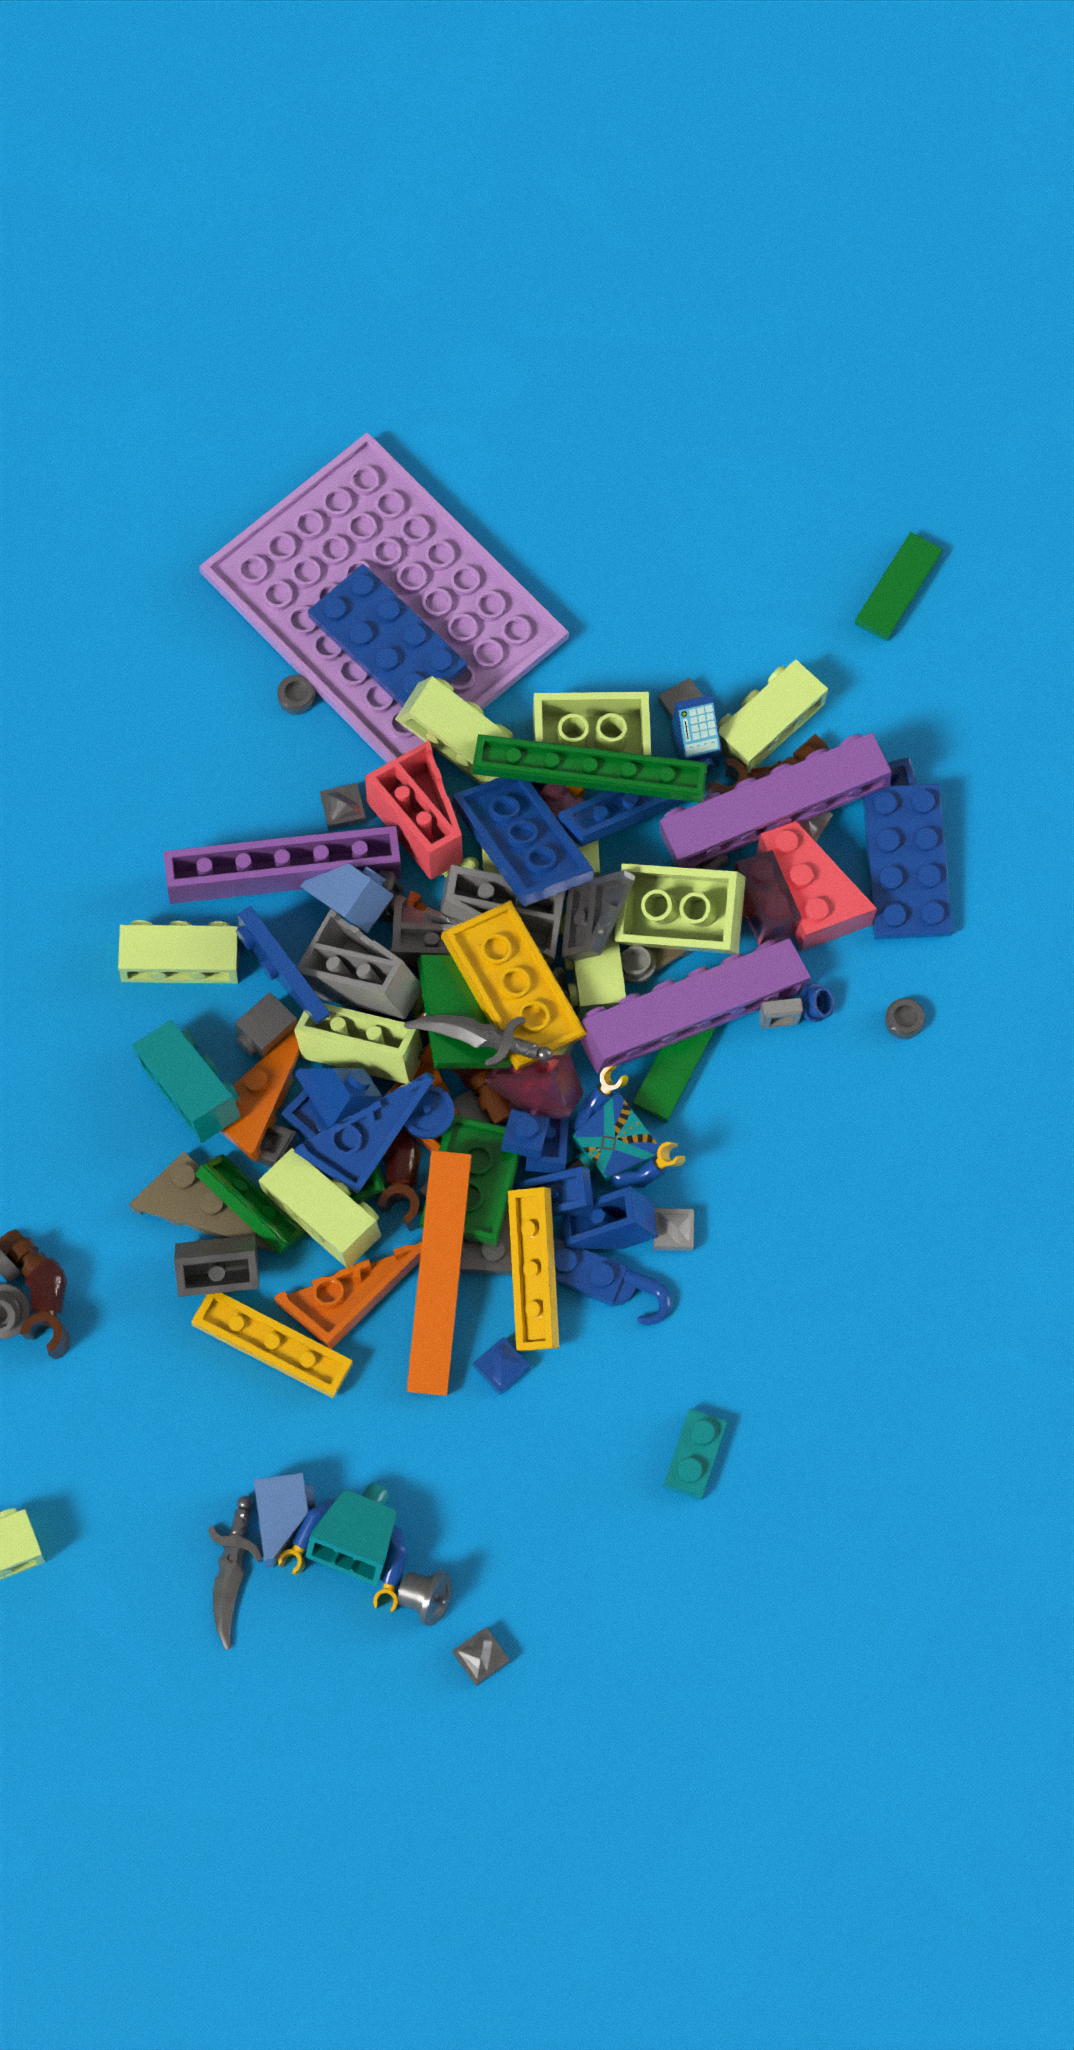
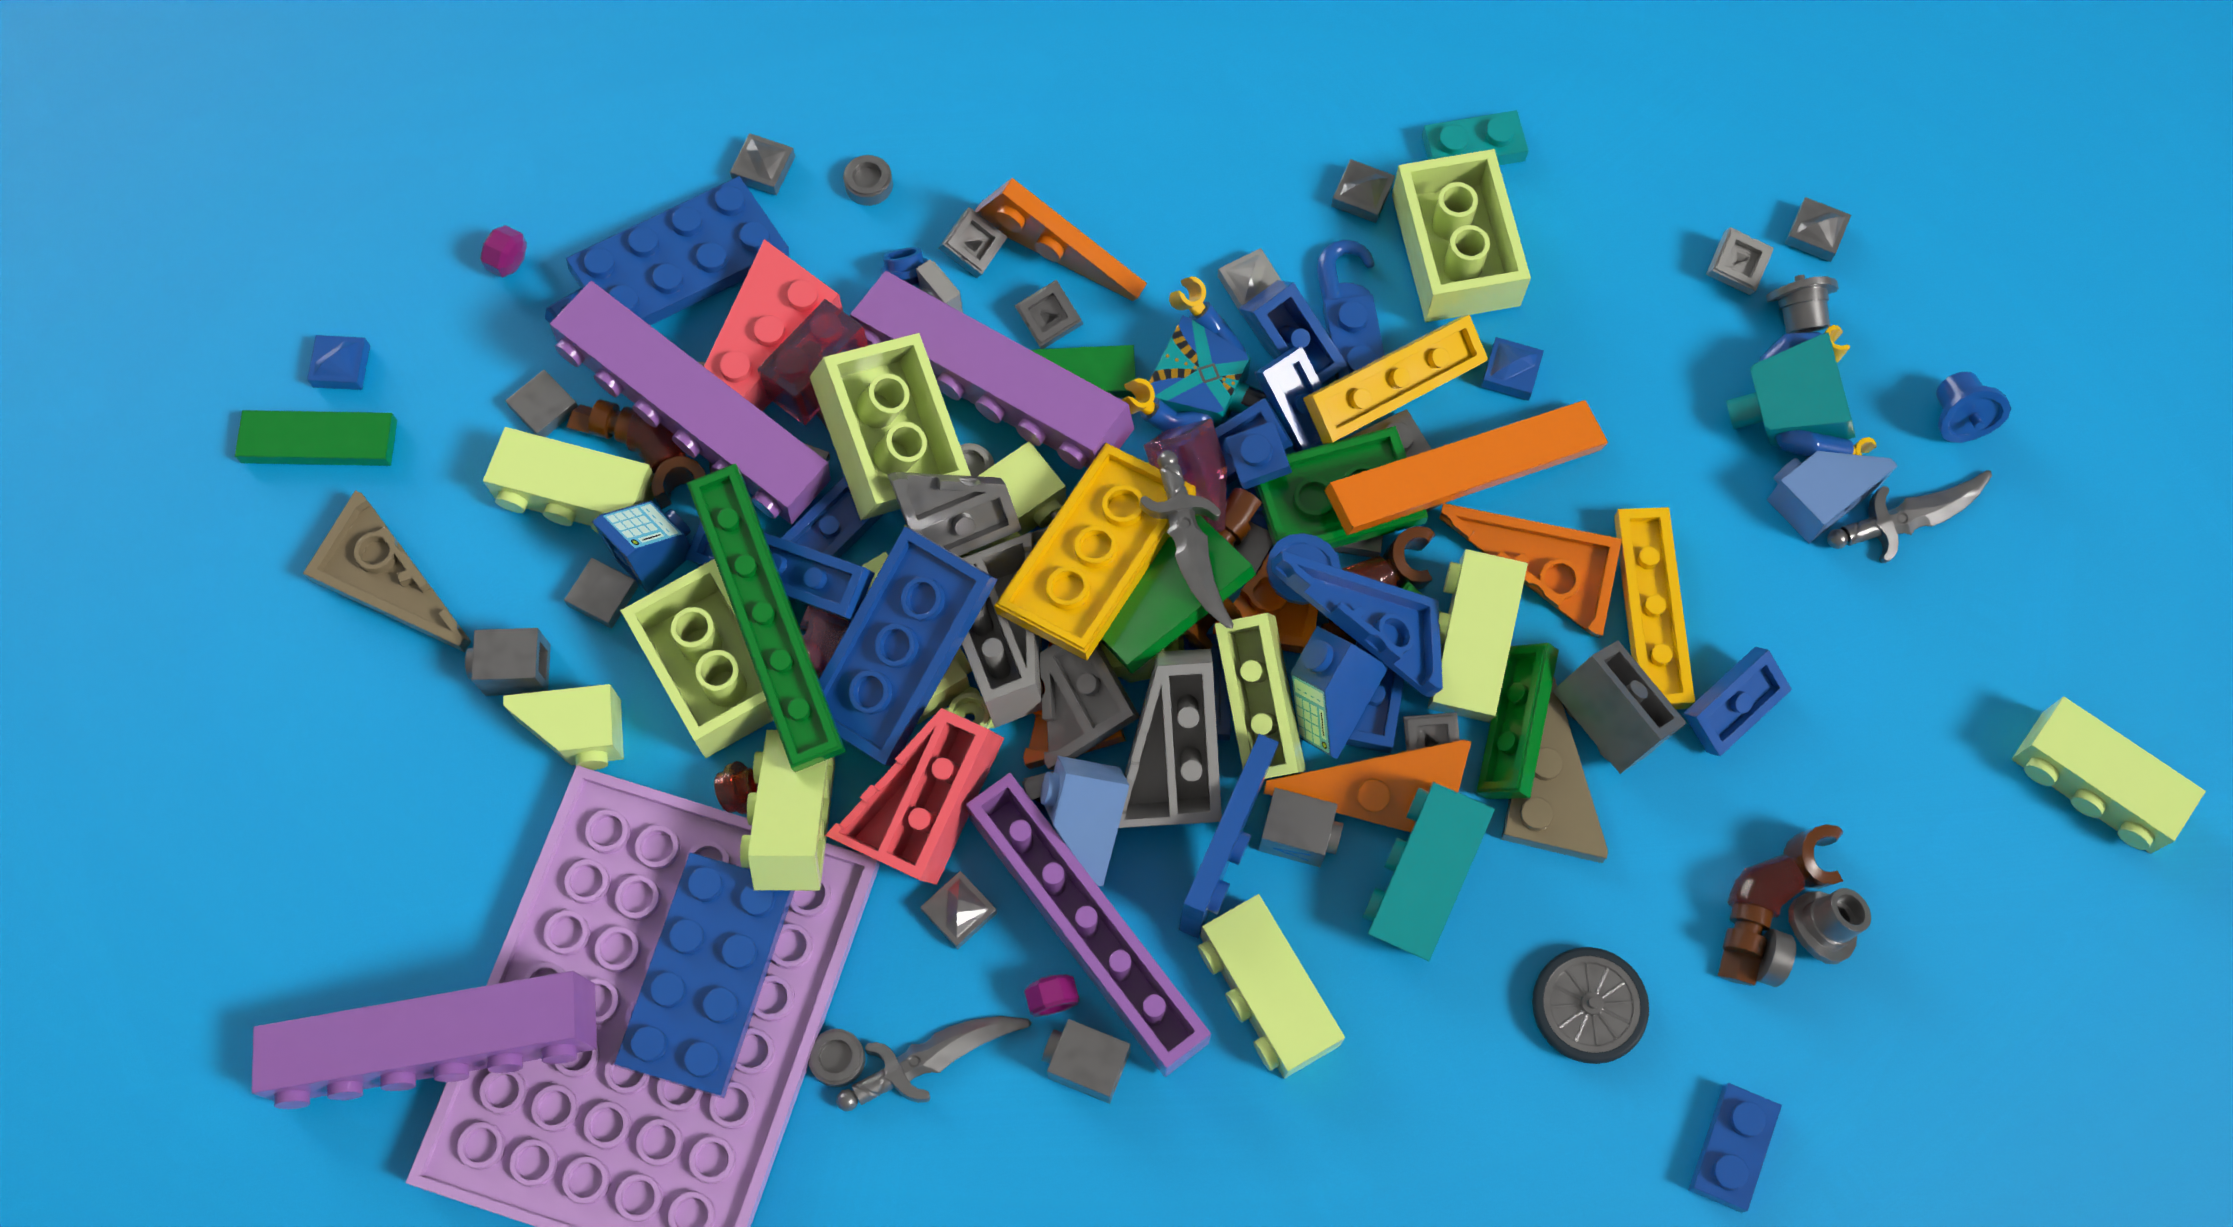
camera: 115 degrees left, 0 degrees up
(47, 1137) = (1590, 1005): none -> flat silver wheel
(175, 1352) = (1737, 701): none -> blue plate
(202, 823) = (1086, 1060): none -> flat silver brick
(255, 825) = (1051, 995): none -> magenta tile
(264, 744) = (925, 1058): none -> flat silver piece
(280, 1654) = (1969, 408): none -> blue piece
(441, 473) = (424, 1039): none -> medium lavender brick
(487, 1577) = (1740, 261): none -> light grey tile
(500, 713) = (734, 786): none -> clear red plate
(597, 643) = (574, 722): none -> yellowish green slope
(617, 1379) = (1460, 235): none -> yellowish green brick
(642, 844) = (831, 523): none -> blue plate
(663, 626) = (509, 661): none -> flat silver brick
(701, 1349) = (1363, 191): none -> flat silver tile
(724, 1077) = (1049, 314): none -> flat silver tile
(777, 578) = (373, 569): none -> dark tan wing
(777, 1108) = (1043, 230): none -> orange wing
(810, 1057) = (973, 242): none -> flat silver tile
(842, 725) = (542, 404): none -> flat silver tile
(949, 622) = (338, 362): none -> blue tile
(956, 955) = (763, 163): none -> flat silver tile
(975, 754) = (503, 251): none -> magenta tile

